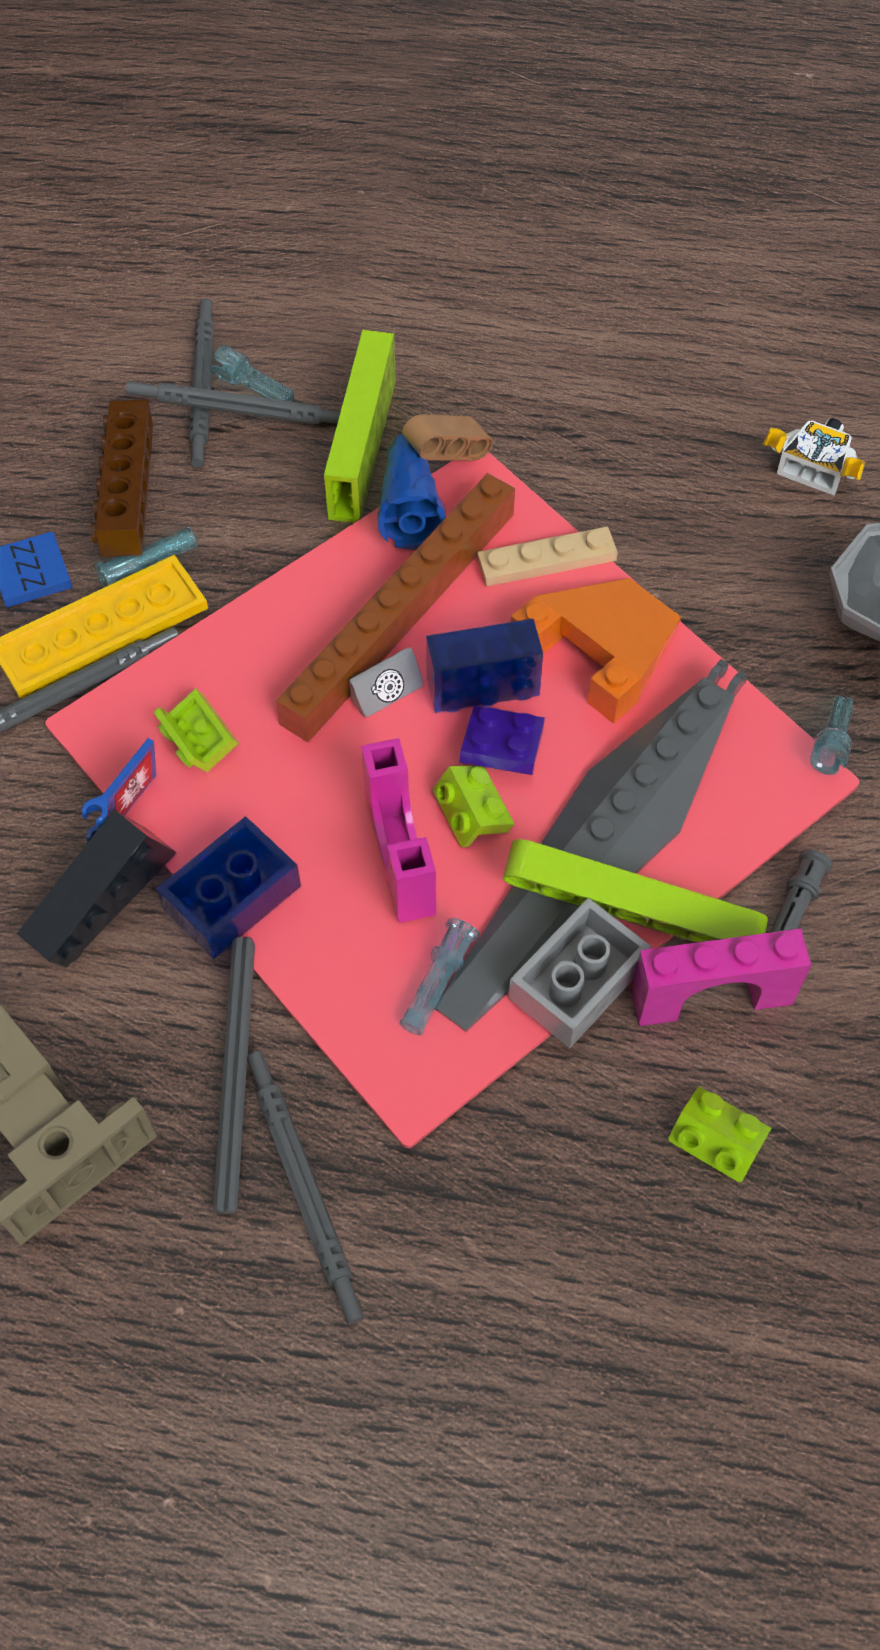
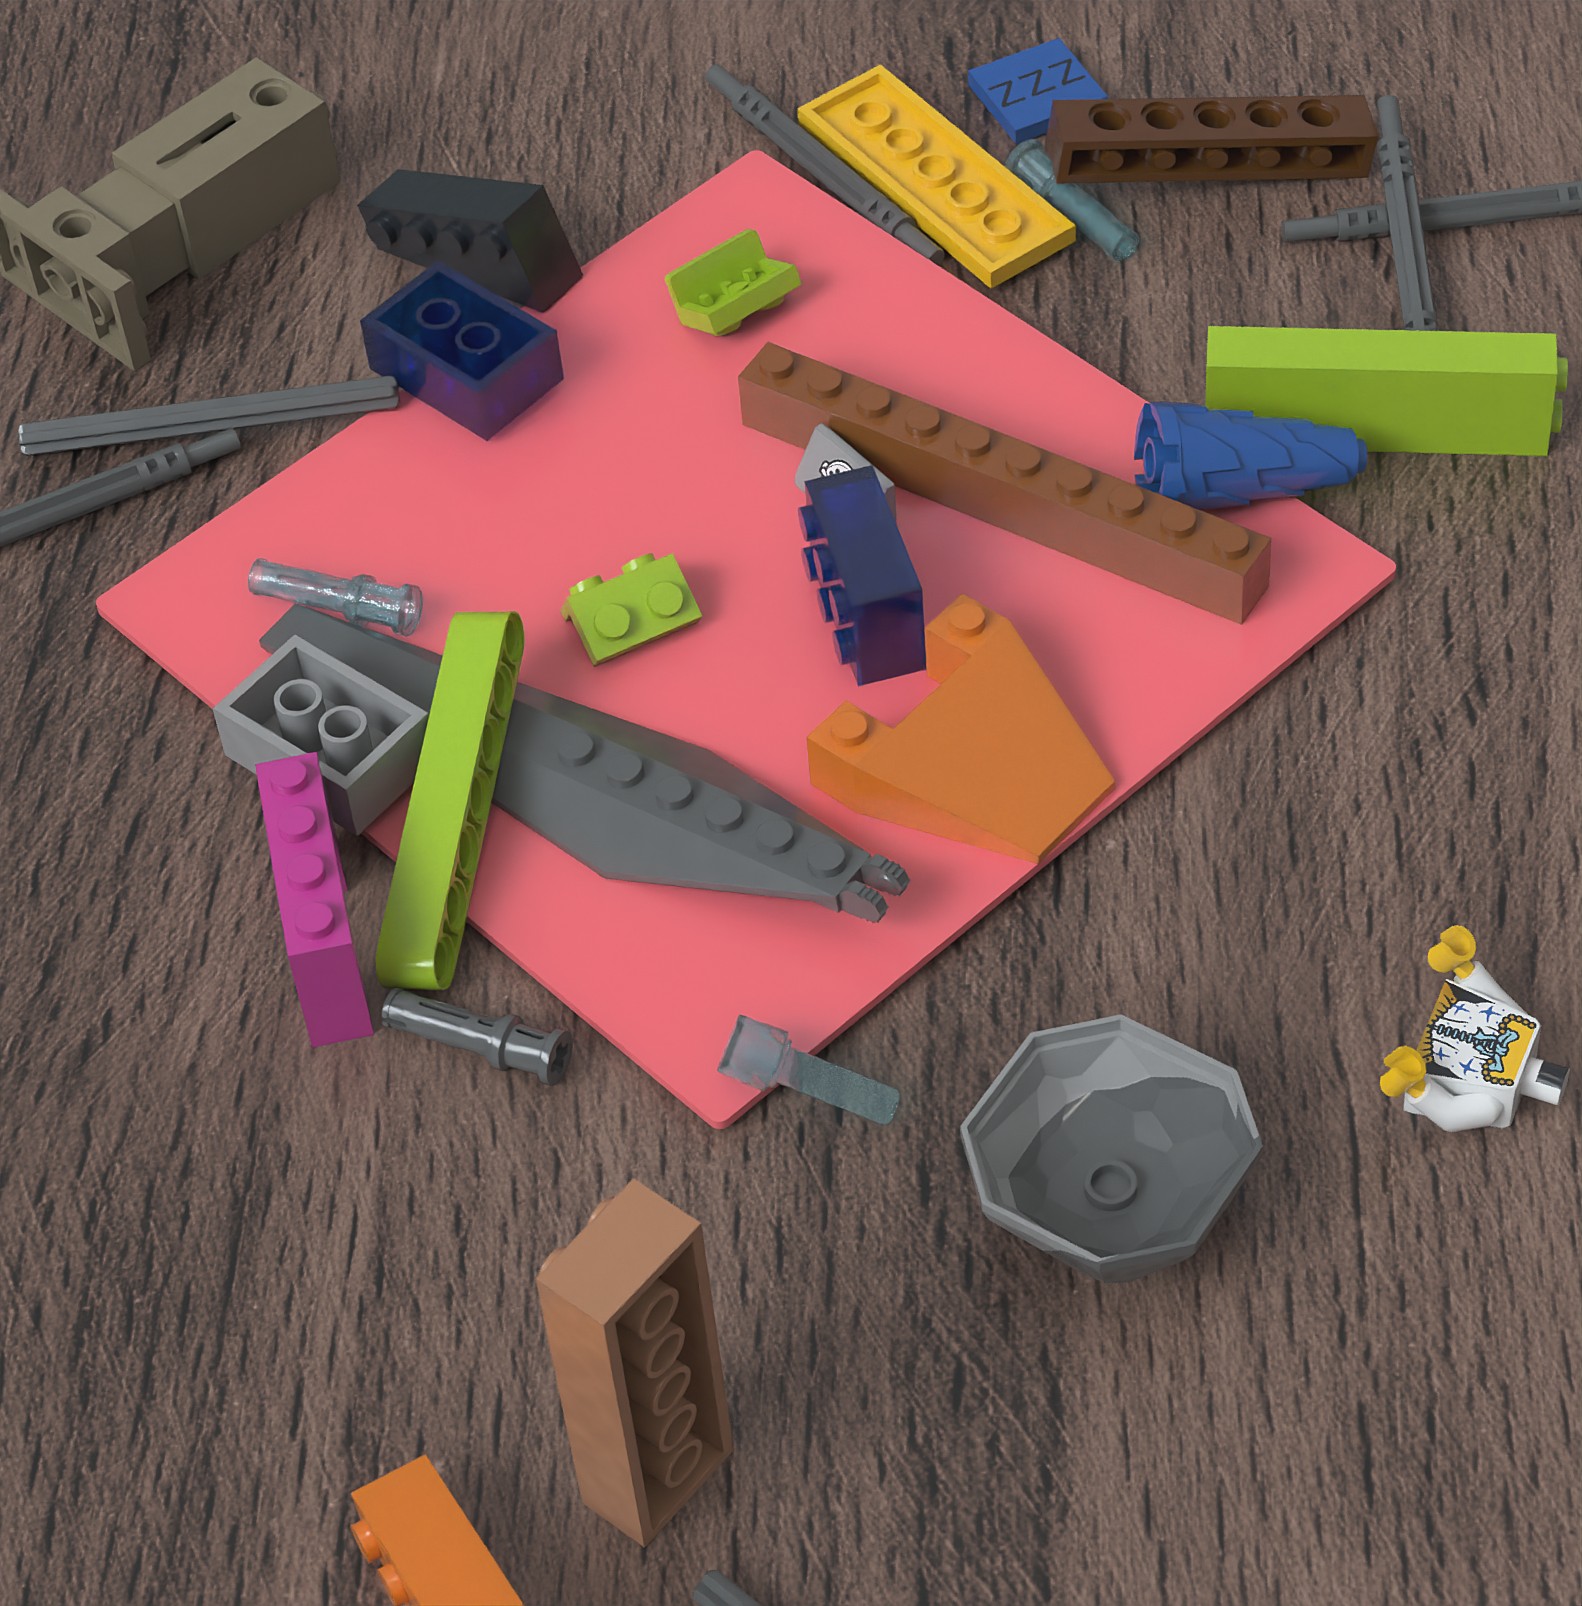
camera: 90 degrees right, 10 degrees down
(125, 788) = (608, 216): blue flag -> none
(237, 370) = (1496, 242): clear light blue piece -> none
(404, 857) = (605, 505): dark pink arch -> none
(447, 437) = (1355, 489): medium nougat beam -> none
(502, 740) = (746, 629): dark purple plate -> none
(546, 556) = (1146, 670): tan plate -> none
(719, 1134) = (99, 943): lime bracket -> none

